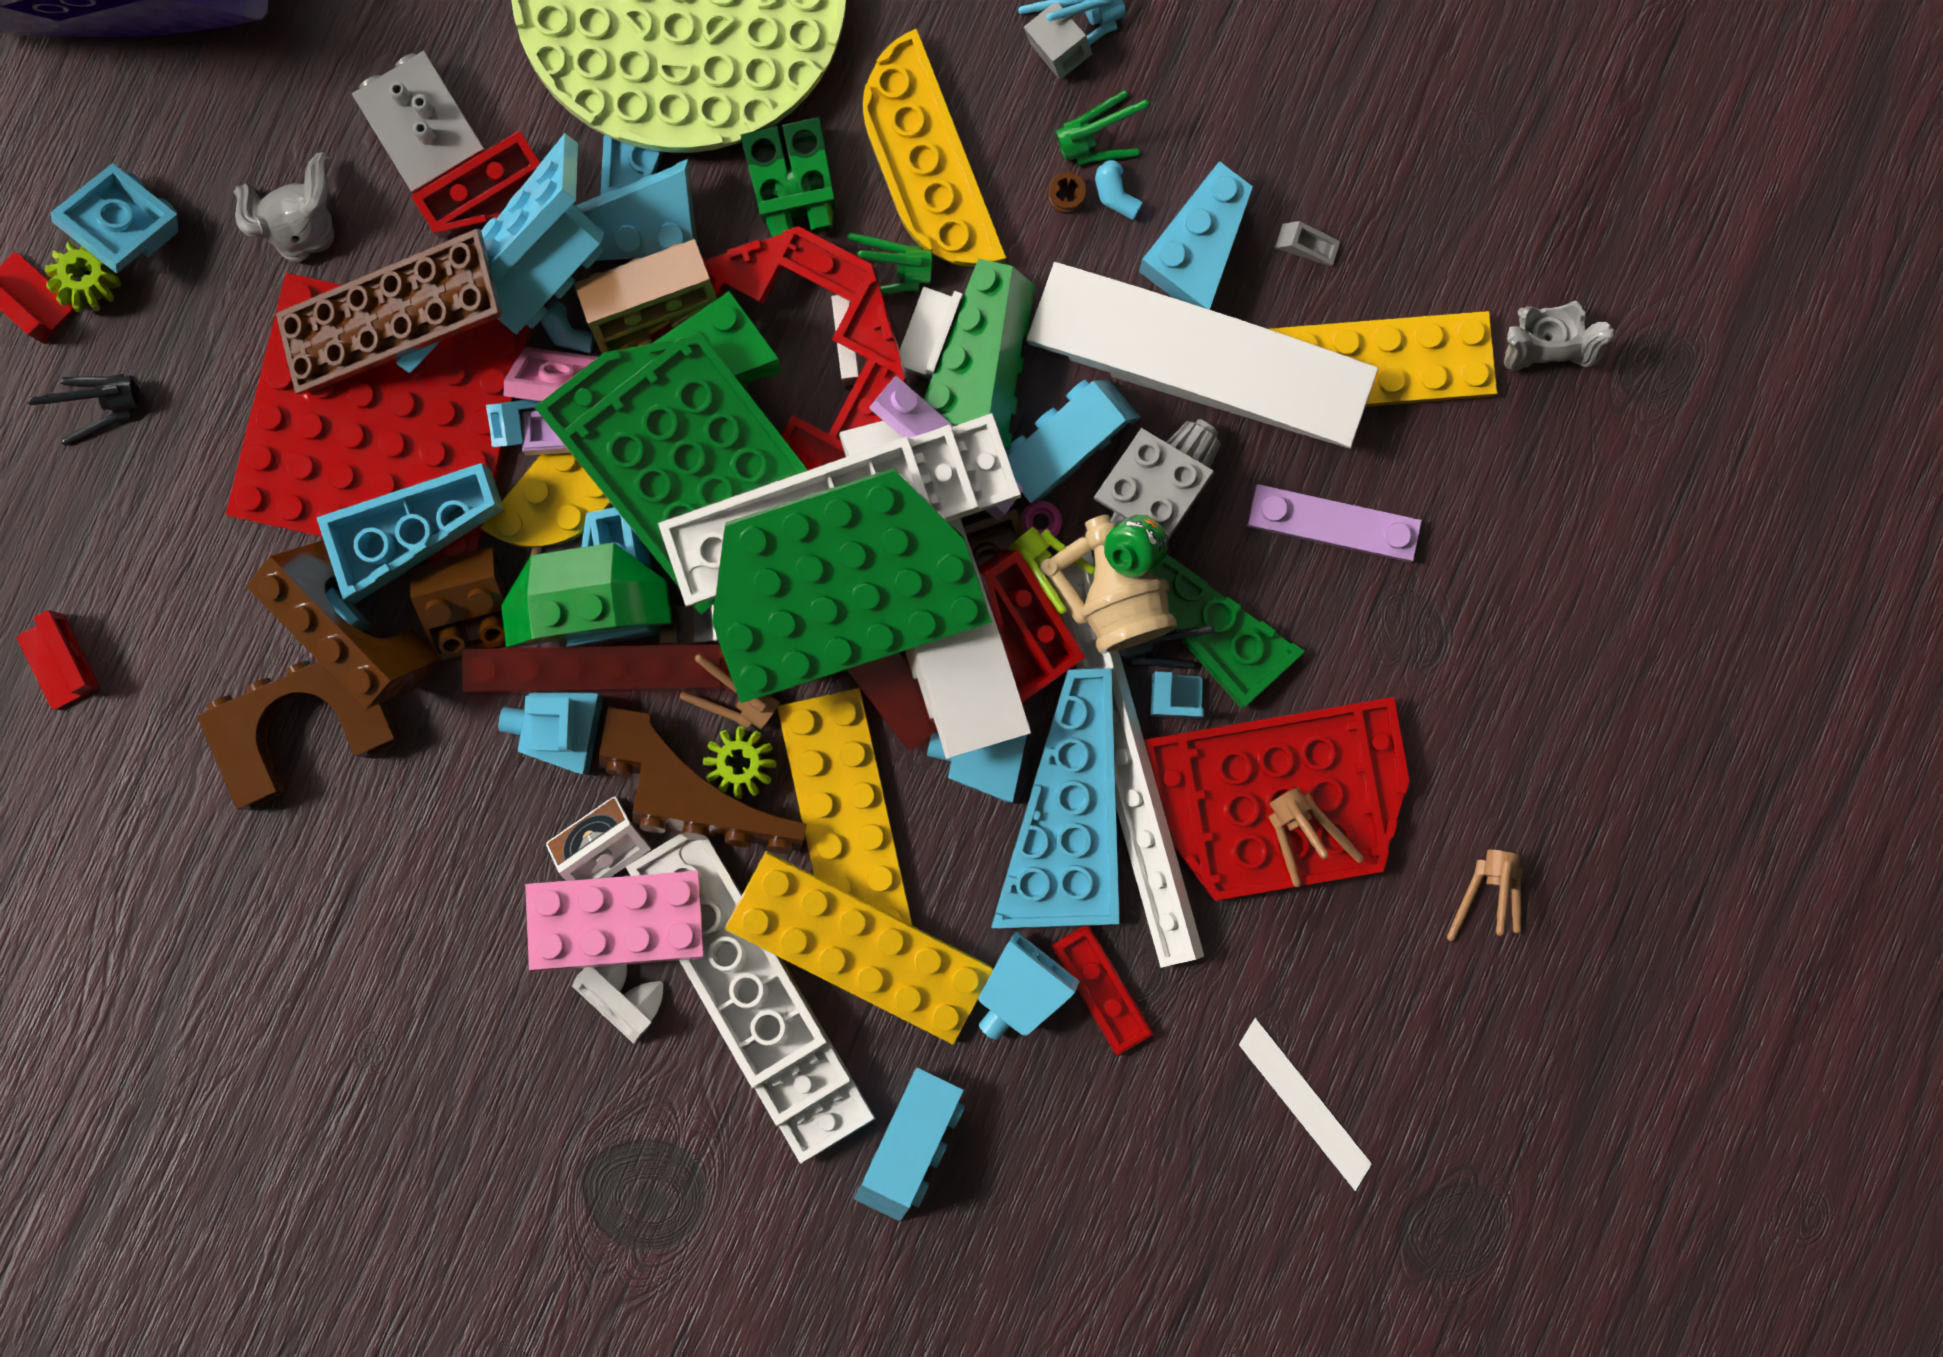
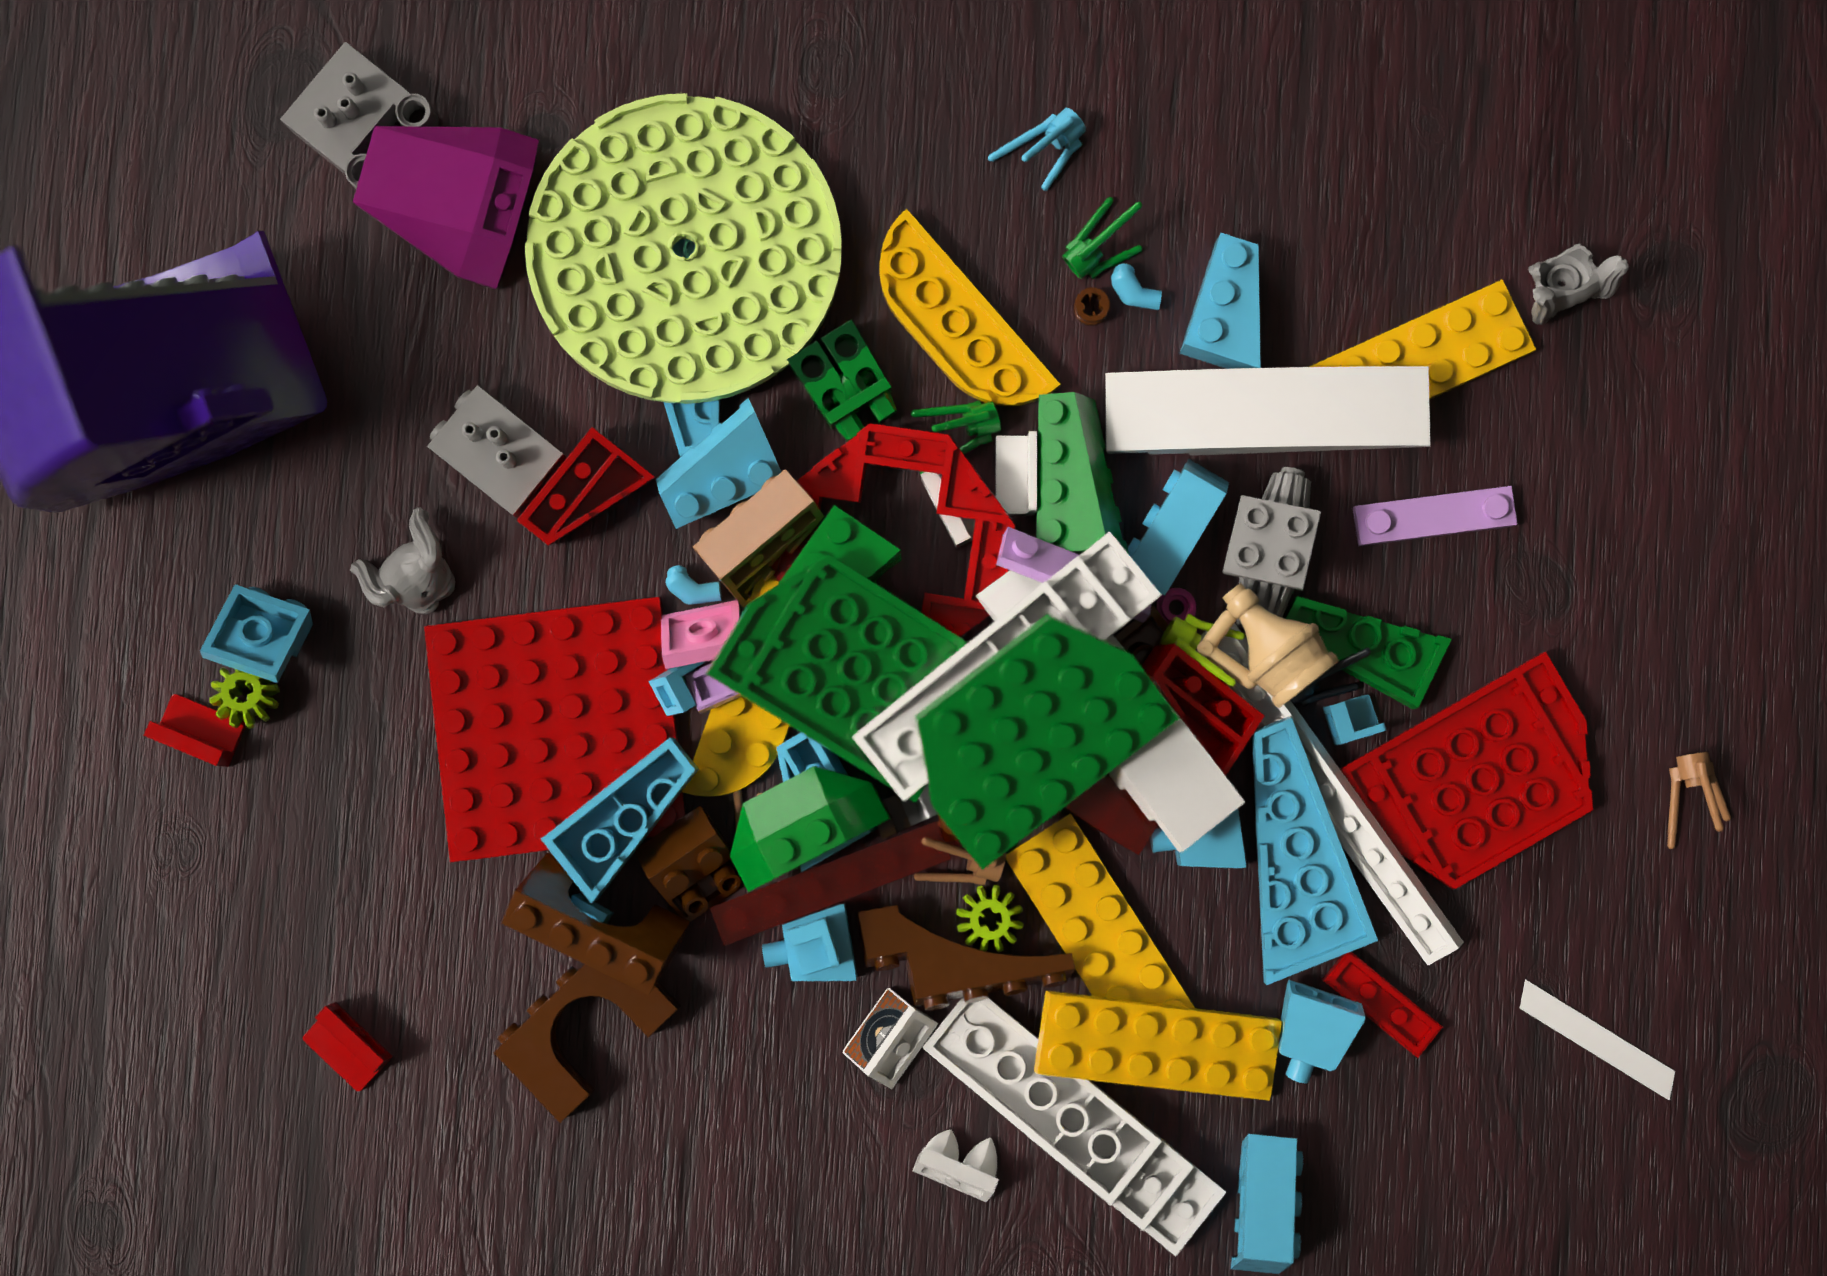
camera: 15 degrees left, 0 degrees up
(114, 393) = (312, 789): black plant -> none
(389, 313) = (538, 632): reddish brown plate -> none
(525, 218) = (627, 514): medium azure wing -> none
(547, 269) = (658, 543): medium azure wedge -> none
(614, 921) = (933, 1101): bright pink plate -> none
(1058, 42) = (1037, 178): light grey panel -> none
(1136, 546) = (1280, 600): green head -> none
(1294, 811) = (1497, 785): medium nougat plant -> none
(1307, 243) = (1319, 275): light grey piece -> none

